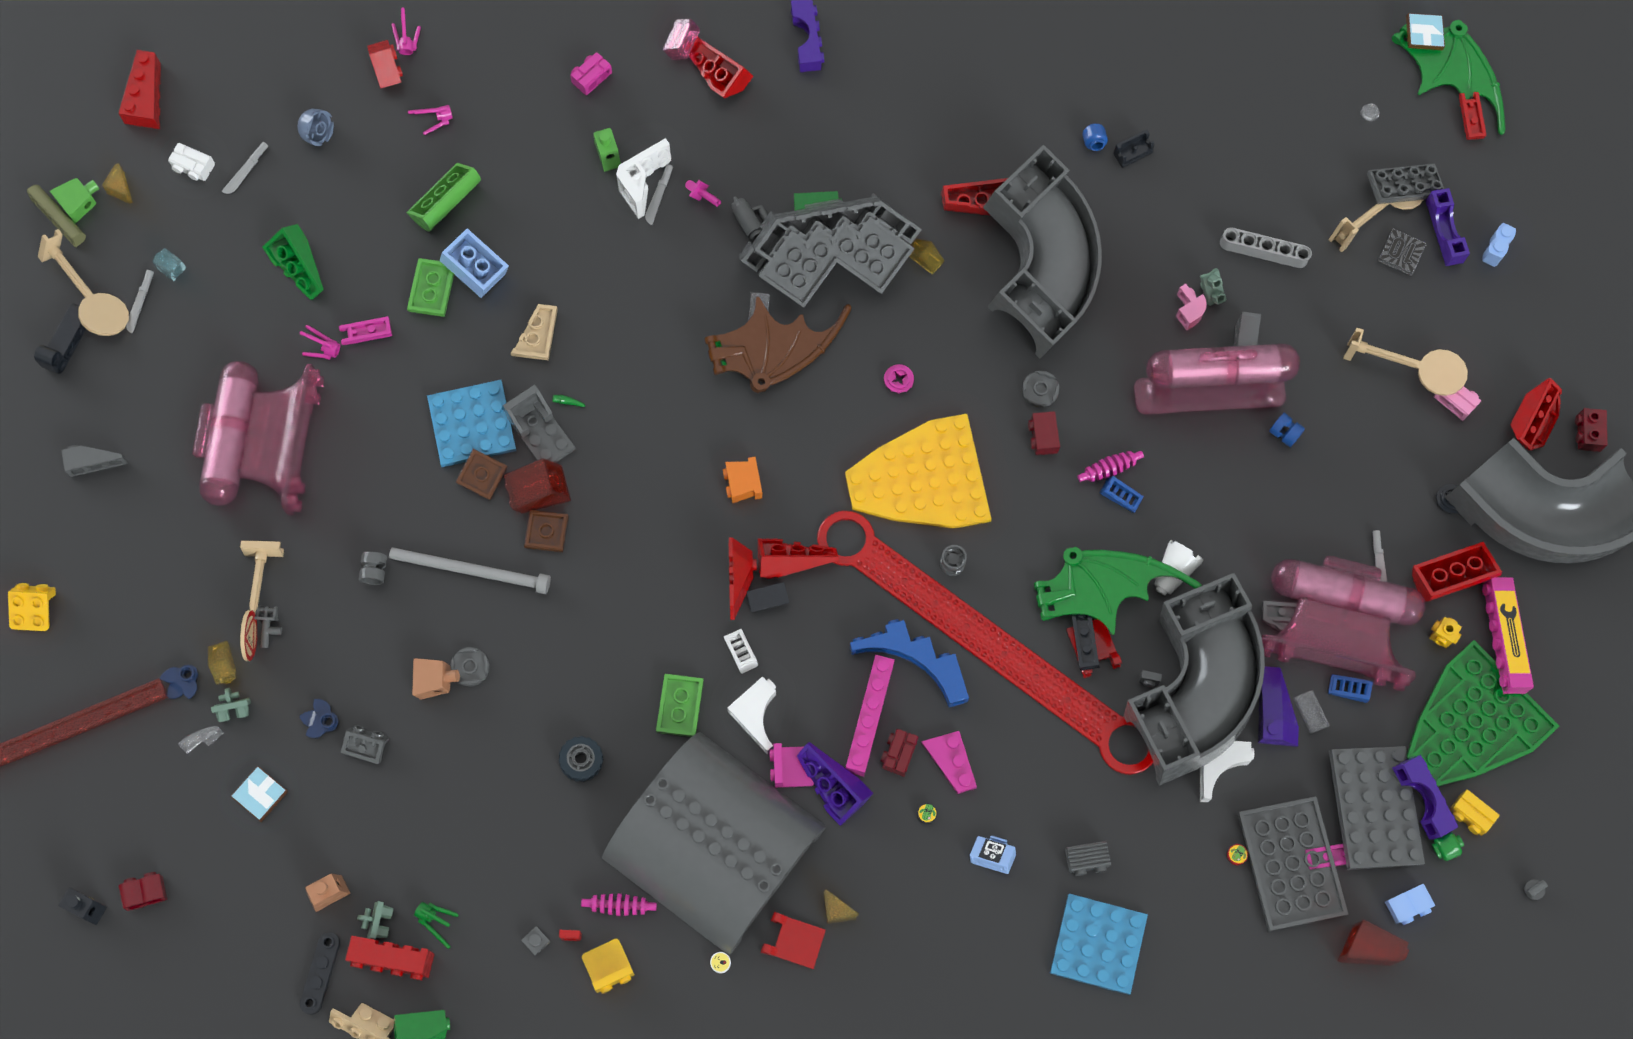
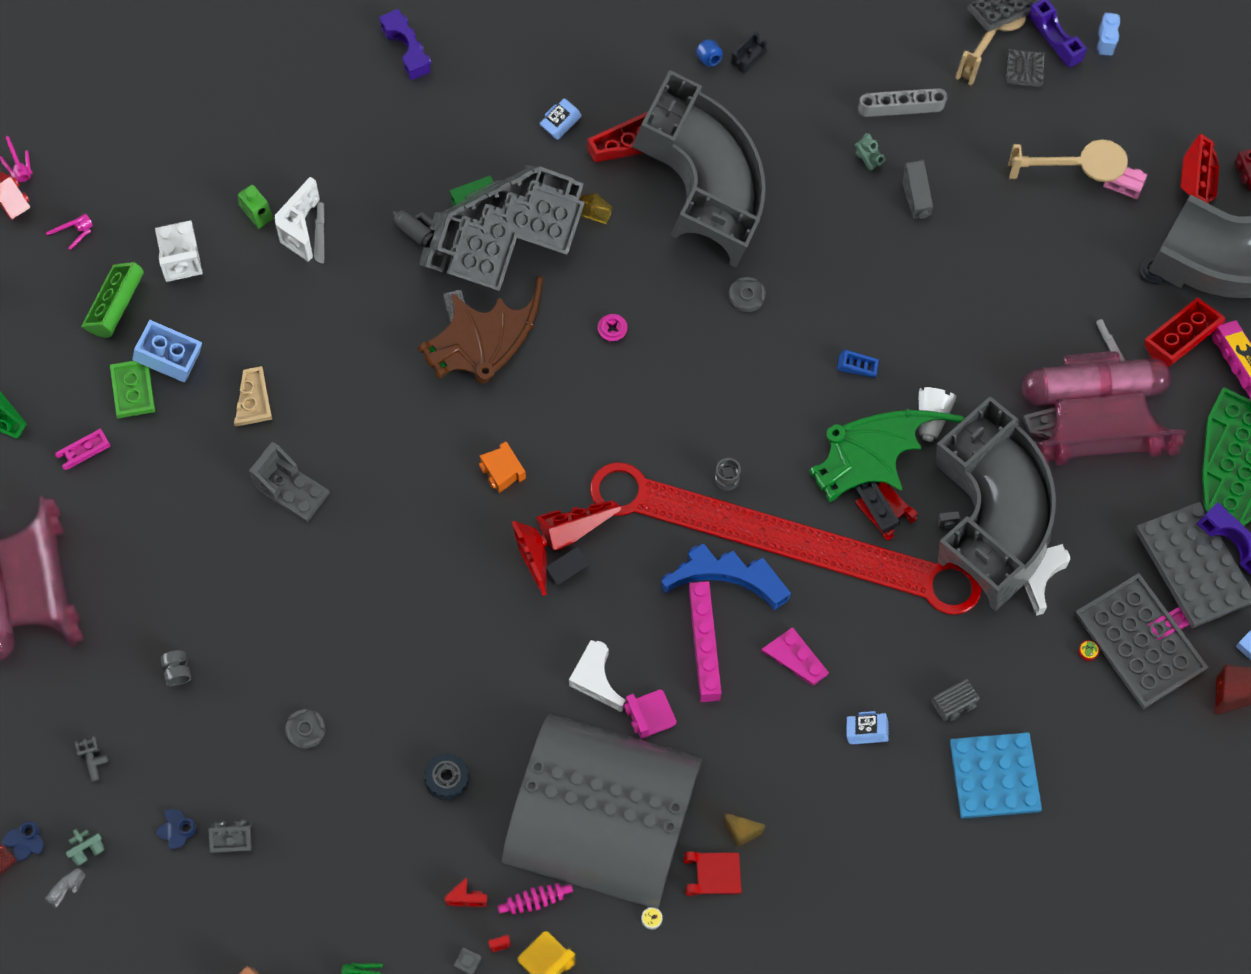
camera: 20 degrees left, 5 degrees down
(221, 663) = (59, 808): clear yellow slope -> none
(259, 793) = (143, 920): tile -> none
(261, 551) = (59, 688): tan piece -> none
(329, 347) = (53, 476): dark pink plant -> none
(432, 678) = (274, 750): nougat torso -> none
(469, 421) = (219, 502): dark azure plate -> none
(481, 474) = (248, 545): reddish brown tile -> none
(521, 169) = (178, 251): none -> white bracket
(537, 486) = (306, 538): clear red slope -> none
(541, 582) = (344, 627): light grey piece -> none
(546, 531) = (331, 577): reddish brown tile -> none
(551, 877) = (459, 896): none -> red slope
(561, 399) = (304, 450): green helmet -> none
(590, 73) = (212, 142): dark pink brick -> none
(679, 705) = (522, 694): bright green plate -> none
(681, 39) = (287, 84): clear pink brick -> none
(698, 191) = (358, 216): dark pink arm -> none
(719, 70) = (335, 101): red wedge -> none
(747, 661) = (569, 633): white slope -> none
(838, 787) = (700, 717): dark purple wedge -> none
(900, 752) = (745, 665): dark red brick -> none
(923, 477) = (669, 410): yellow piece -> none
(926, 156) = (560, 119): none -> light blue piece
(927, 813) = (792, 713): tile -> none
(1044, 432) = (767, 332): dark red brick -> none
(1110, 466) = (838, 342): dark pink piece -> none
(1194, 307) = (858, 176): bright pink brick -> none
(1216, 378) = (906, 229): clear pink piece -> none
(1276, 714) = (1073, 512): dark purple wedge -> none
(1292, 434) = (991, 258): blue wheel -> none
(1311, 712) = (1104, 500): clear tile -> none
(1351, 681) = (1146, 471): blue slope -> none
(1445, 632) = (1195, 388): yellow brick -> none

